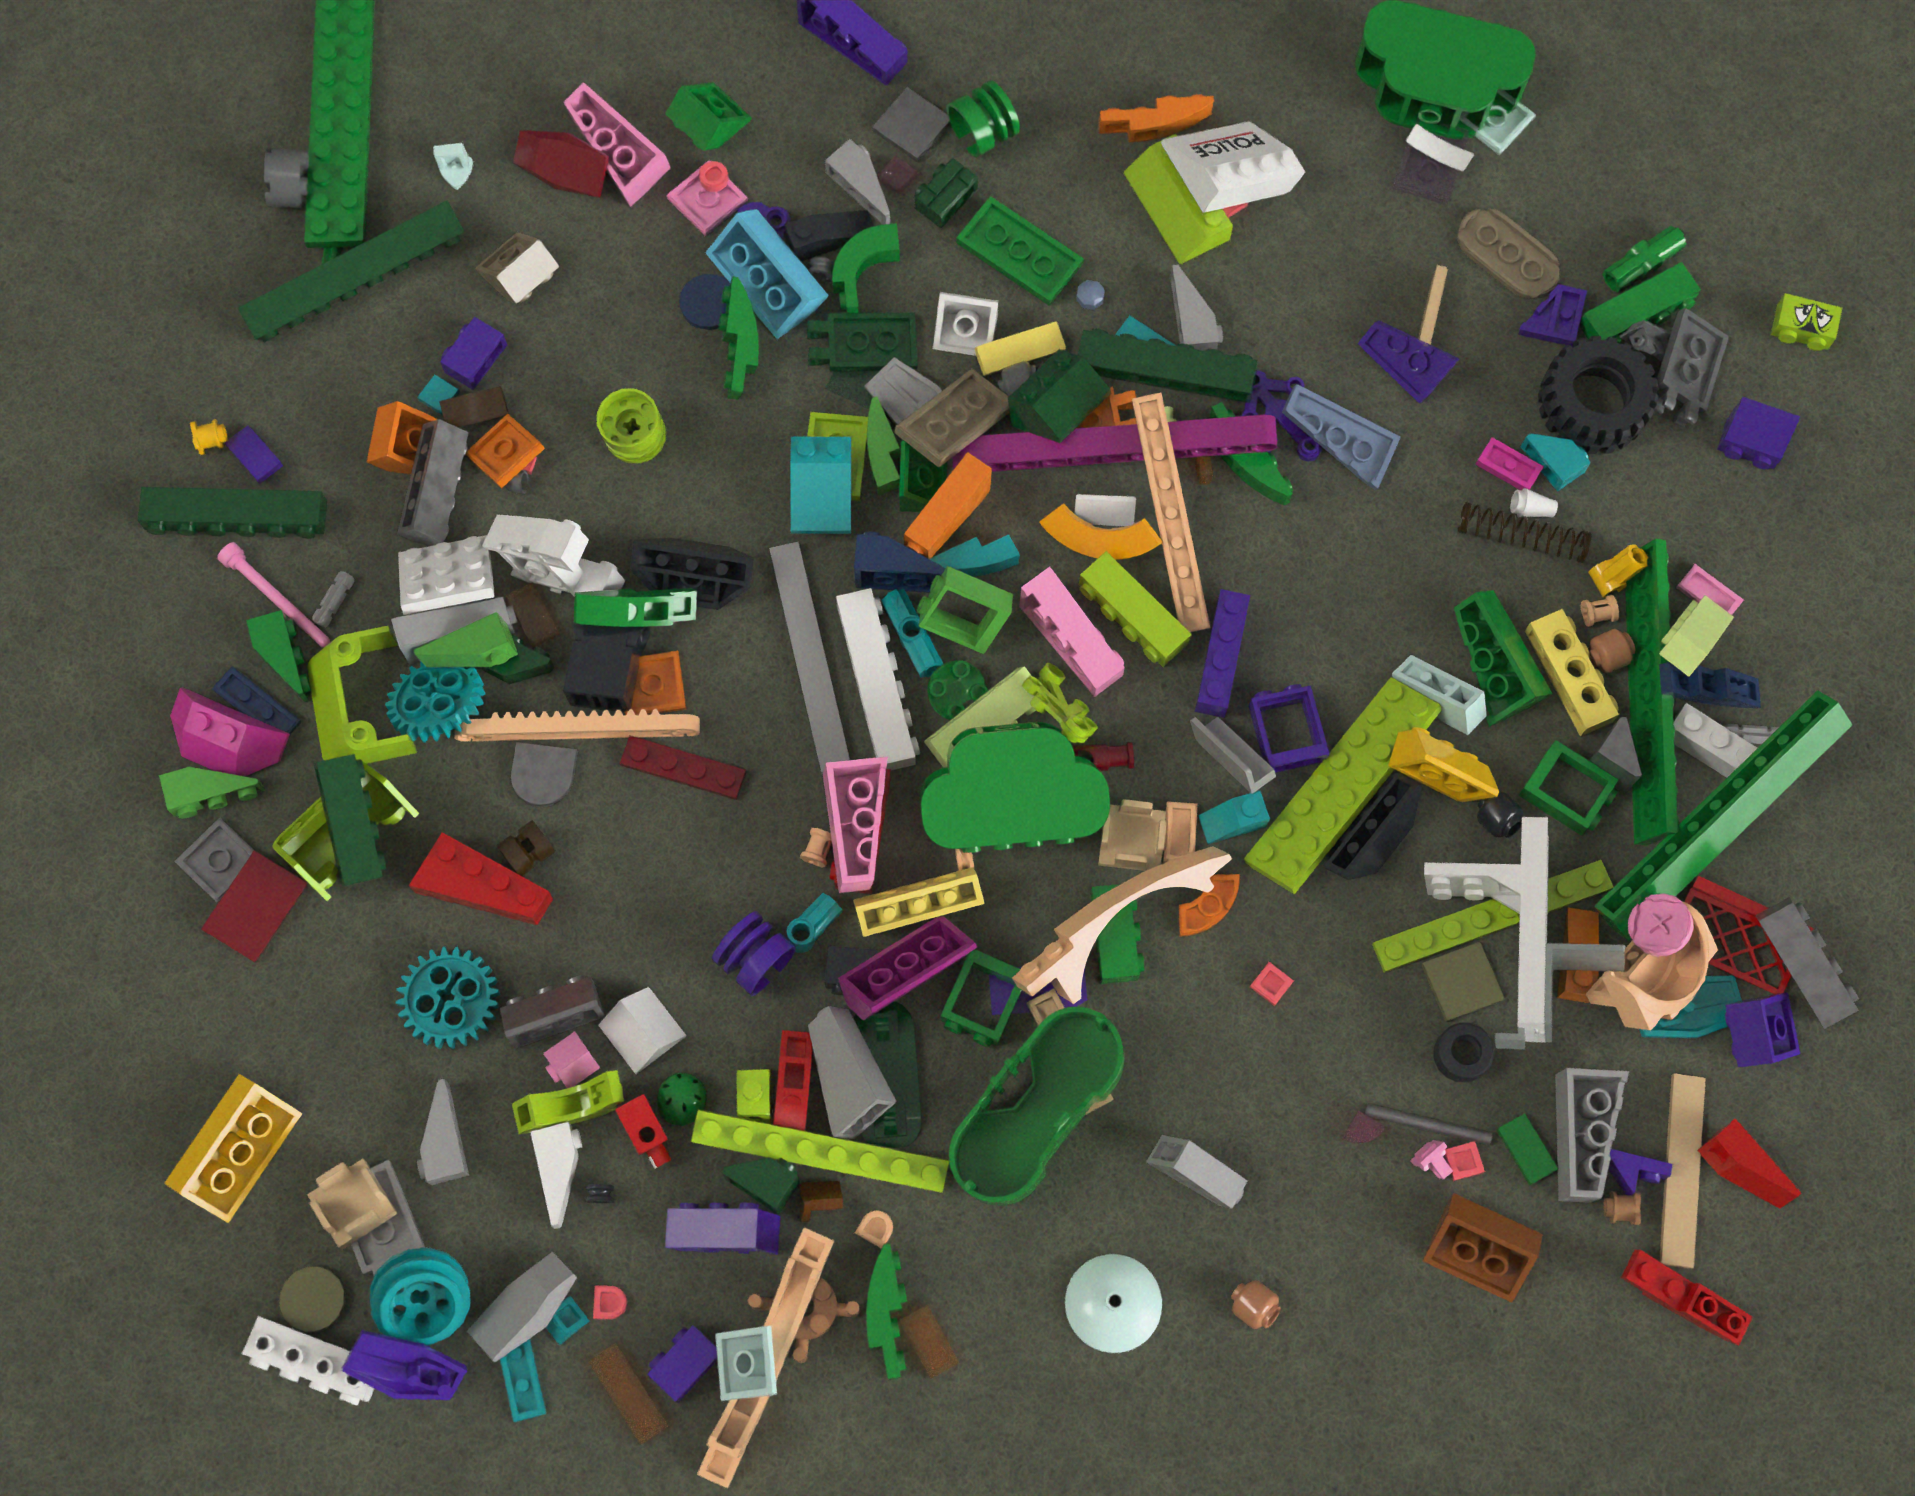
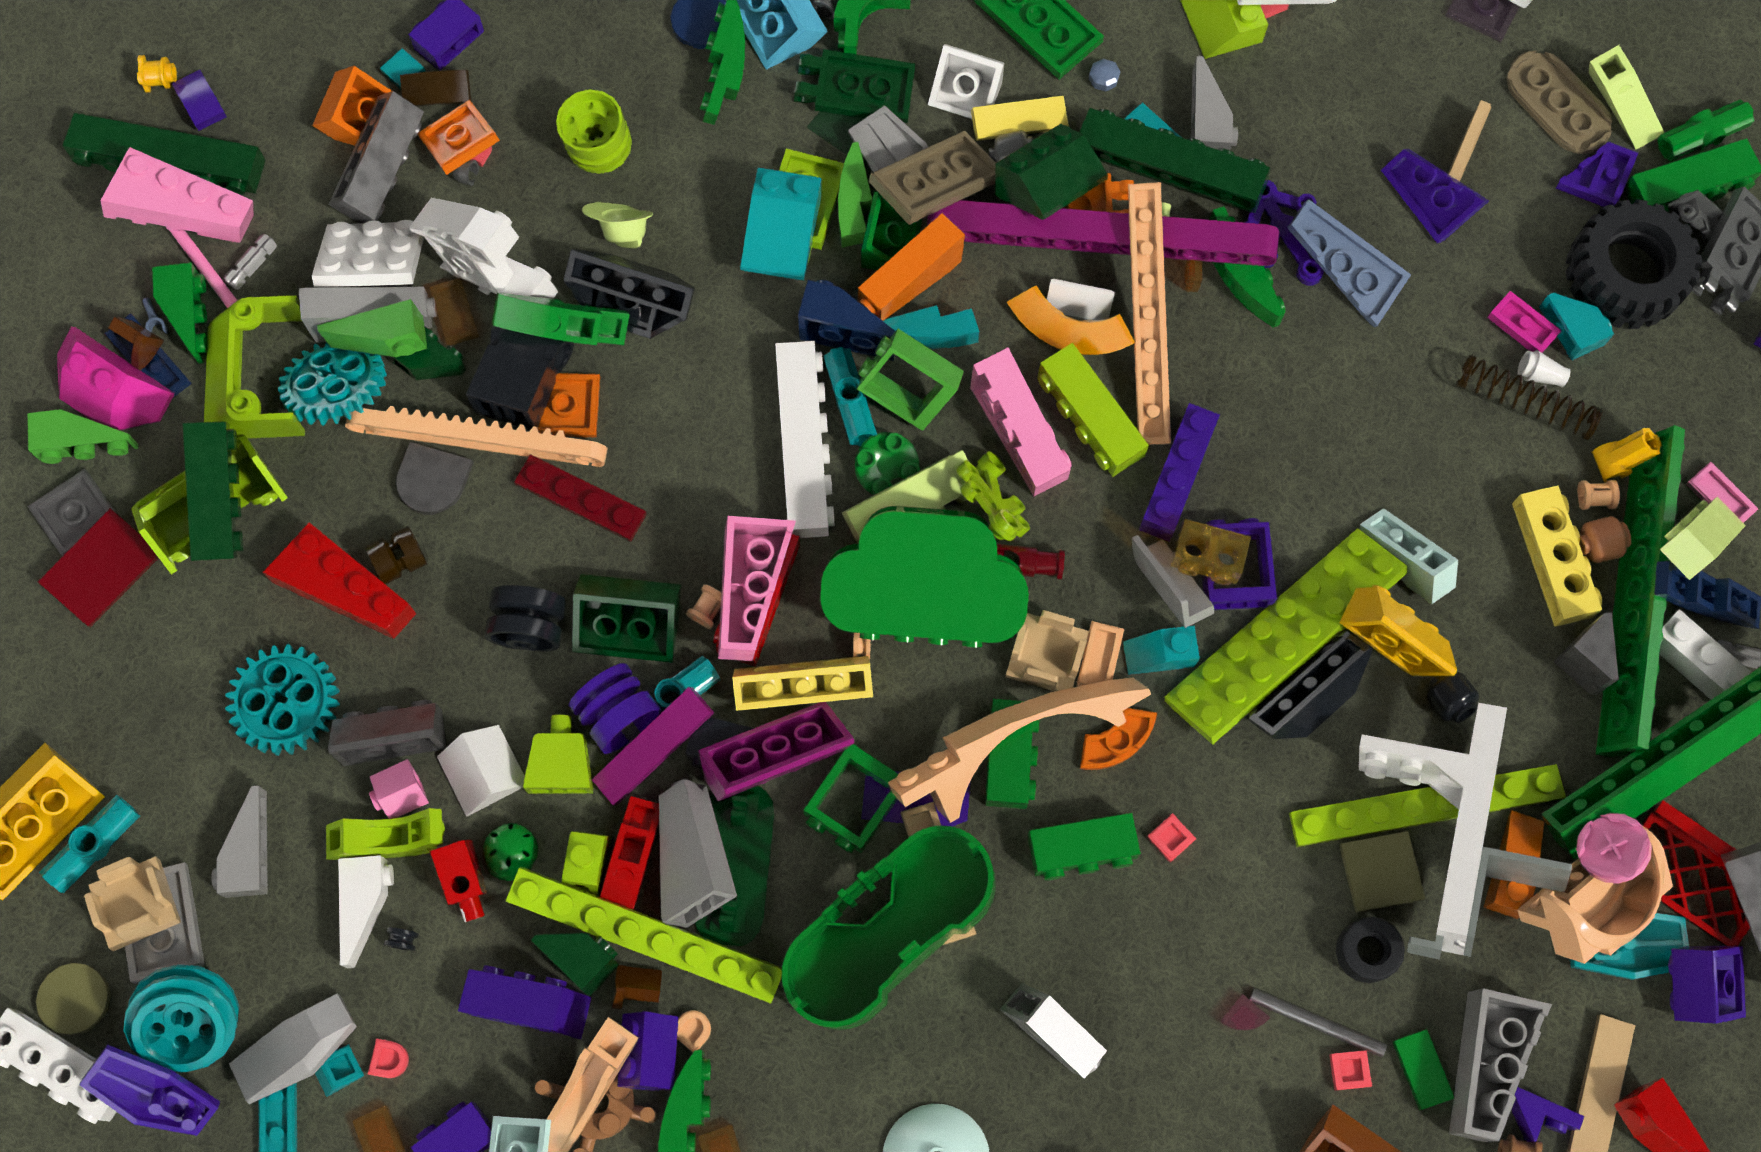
camera: 10 degrees right, 0 degrees up
(254, 668) = (153, 317): none -> sand blue hand
(254, 690) = (145, 342): none -> reddish brown tile
(255, 553) = (170, 197): none -> bright pink wedge
(285, 1175) = (73, 859): none -> teal piece
(656, 886) = (525, 618): none -> black wheel
(670, 506) = (619, 222): none -> yellowish green piece
(711, 1010) = (558, 761): none -> lime torso
(746, 870) = (625, 618): none -> dark green slope
(794, 981) = (653, 746): none -> magenta tile
(809, 654) = (737, 399): light grey tile -> none
(848, 1258) = (654, 1054): none -> dark purple brick
(1195, 1004) = (1084, 846): none -> green brick
(1263, 713) = (1211, 543): none -> clear yellow brick
(1432, 1157) = (1315, 1060): bright pink brick -> none
(1499, 658) = (1480, 527): green wedge -> none
(1556, 809) = (1514, 700): green window -> none
(1567, 240) = (1625, 96): none -> yellowish green slope

